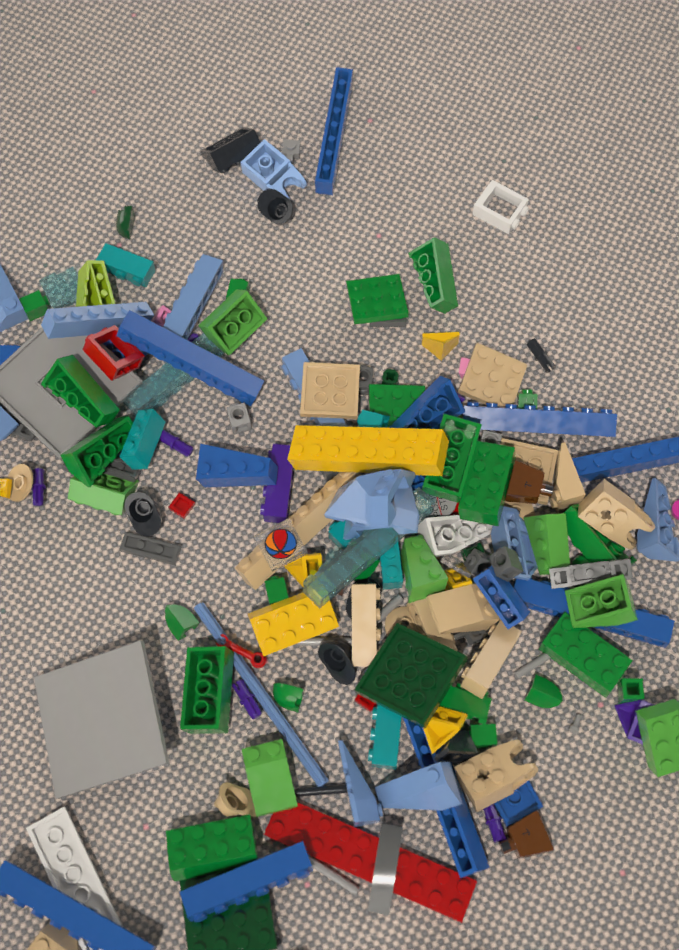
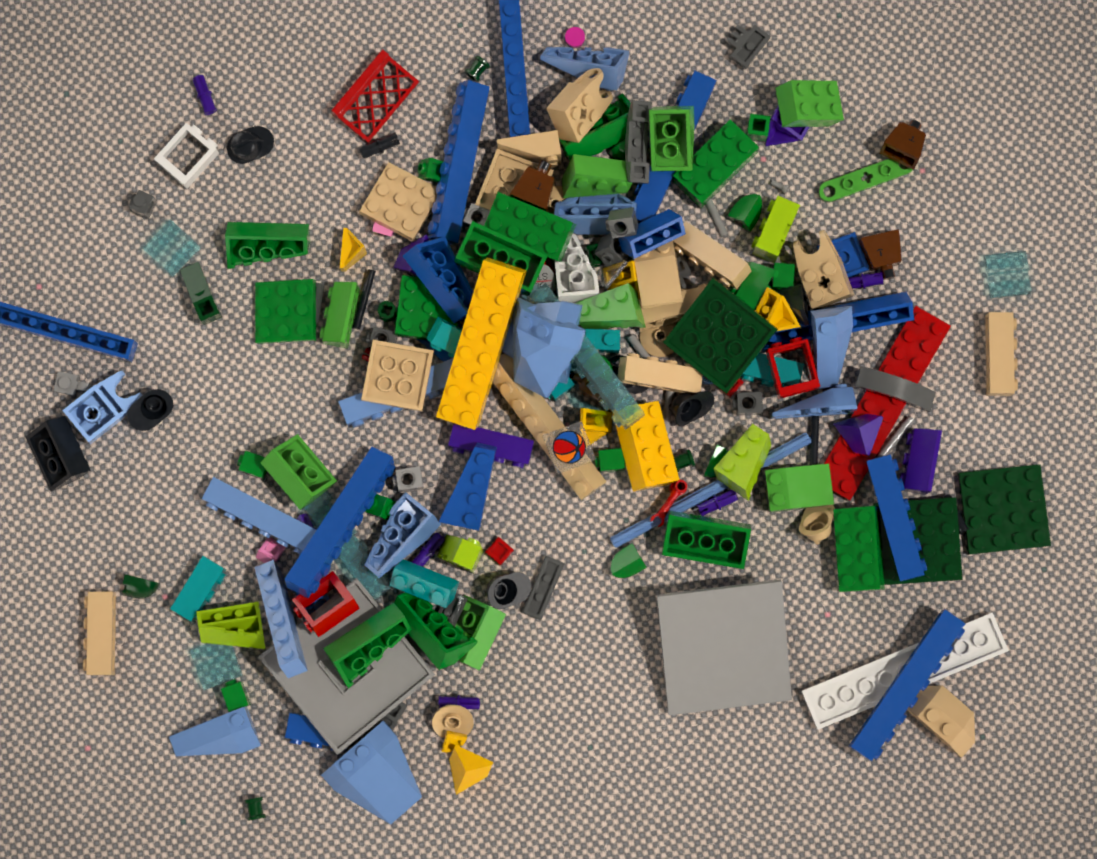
camera: 85 degrees left, 15 degrees up
(82, 199) = (100, 633): none -> tan brick
(171, 469) = (461, 552): none -> lime wedge
(191, 420) = (404, 532): none -> medium blue wedge
(211, 400) = (381, 507): none -> green bracket
(284, 660) = (684, 460): none -> dark green bush
(289, 718) = (743, 461): none -> lime wedge
(311, 903) = (920, 460): none -> dark purple slope
(334, 834) = (860, 432): none -> dark purple slope
(349, 726) = (755, 397): none -> dark grey brick
(380, 232) = (200, 293): none -> dark green slope
(380, 343) = (340, 314): none -> bright green slope
(398, 362) = (363, 299): none -> black bar
(407, 735) = (799, 388): none -> red window
(419, 208) = (171, 247): none -> clear light blue slope
(452, 175) = (142, 204): none -> dark grey brick
(521, 255) = (250, 144): none -> black piece
(530, 722) = (775, 229): none -> lime wedge
(556, 214) = (204, 95): none -> dark purple axle
(589, 330) = (360, 86): none -> red fence
(610, 827) = (852, 183): none -> bright green piece
(637, 426) = (477, 68): none -> dark green bush
(646, 846) = (905, 144): none -> reddish brown torso

